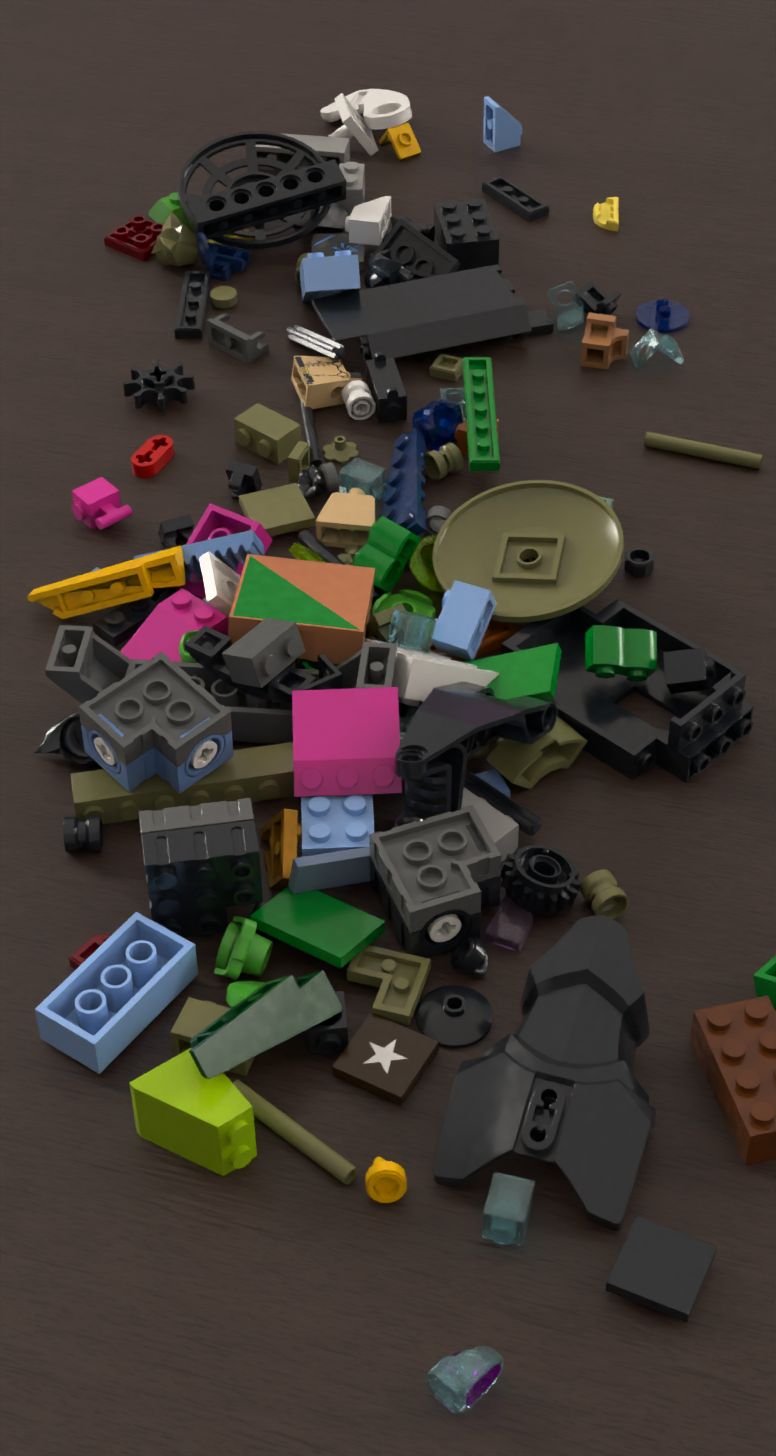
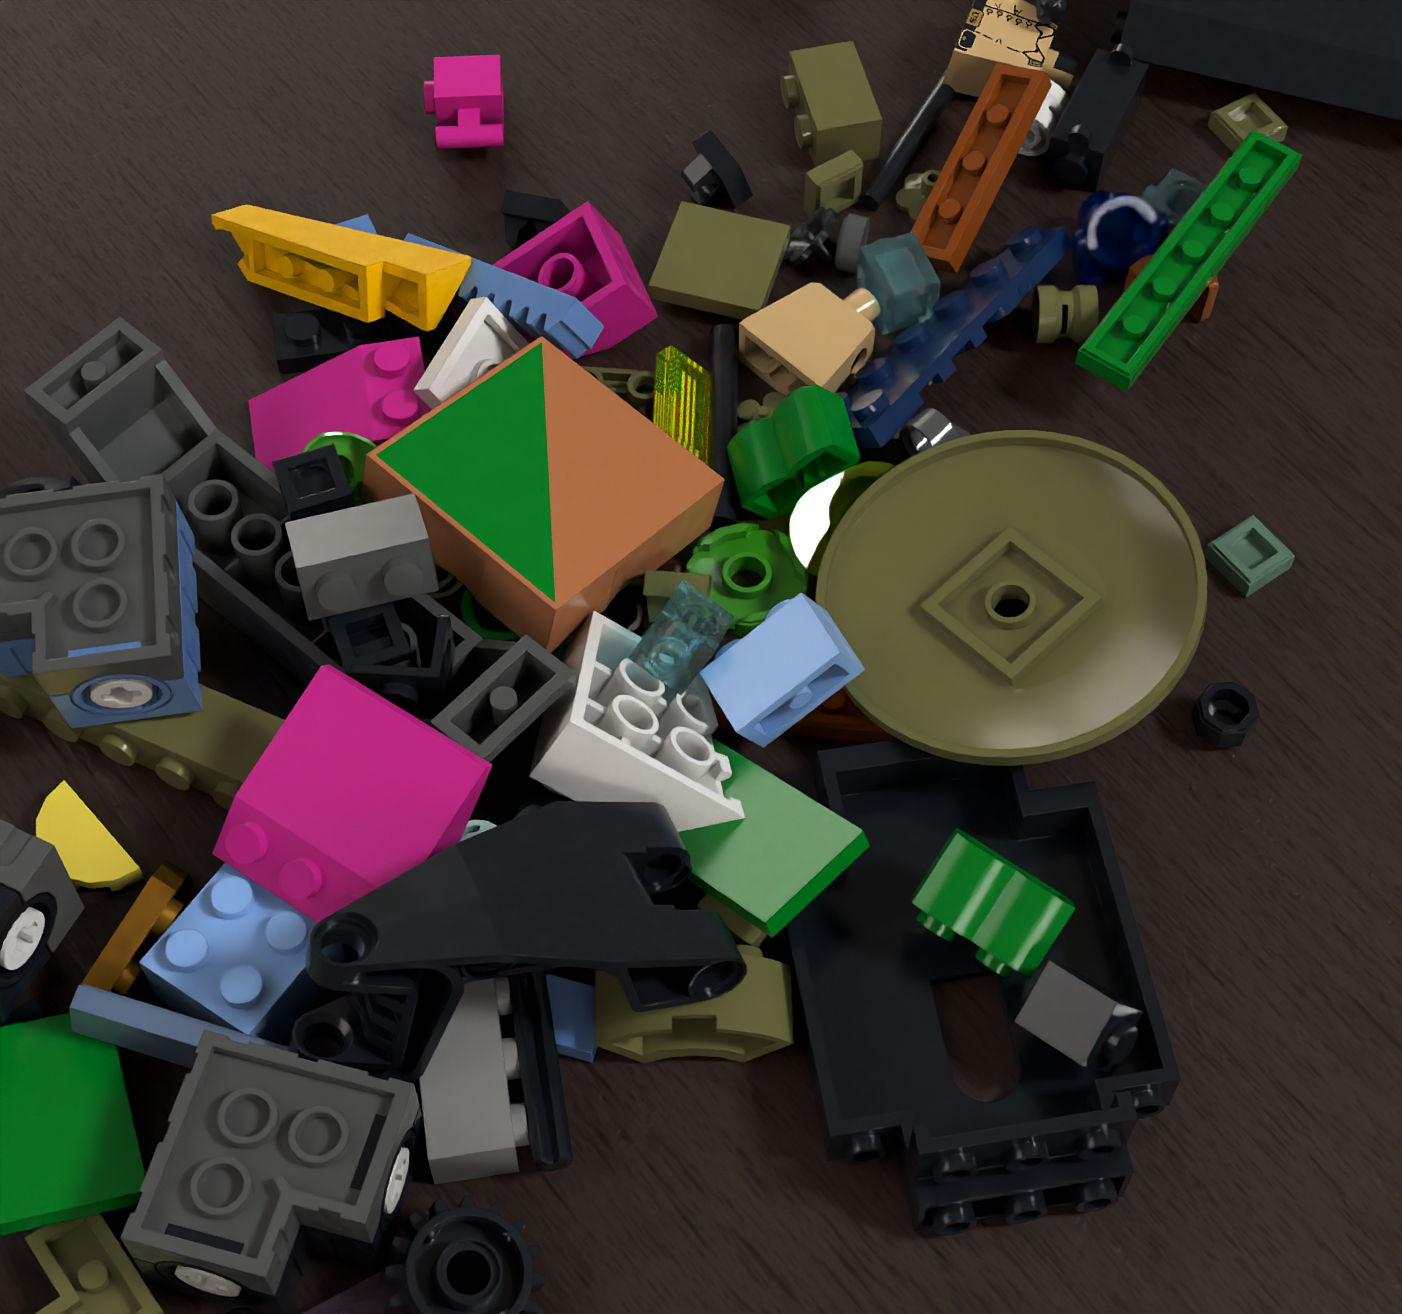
camera: 35 degrees right, 15 degrees up
(152, 456) = (633, 52): red beam -> none
(357, 418) = (979, 163): none -> dark orange plate

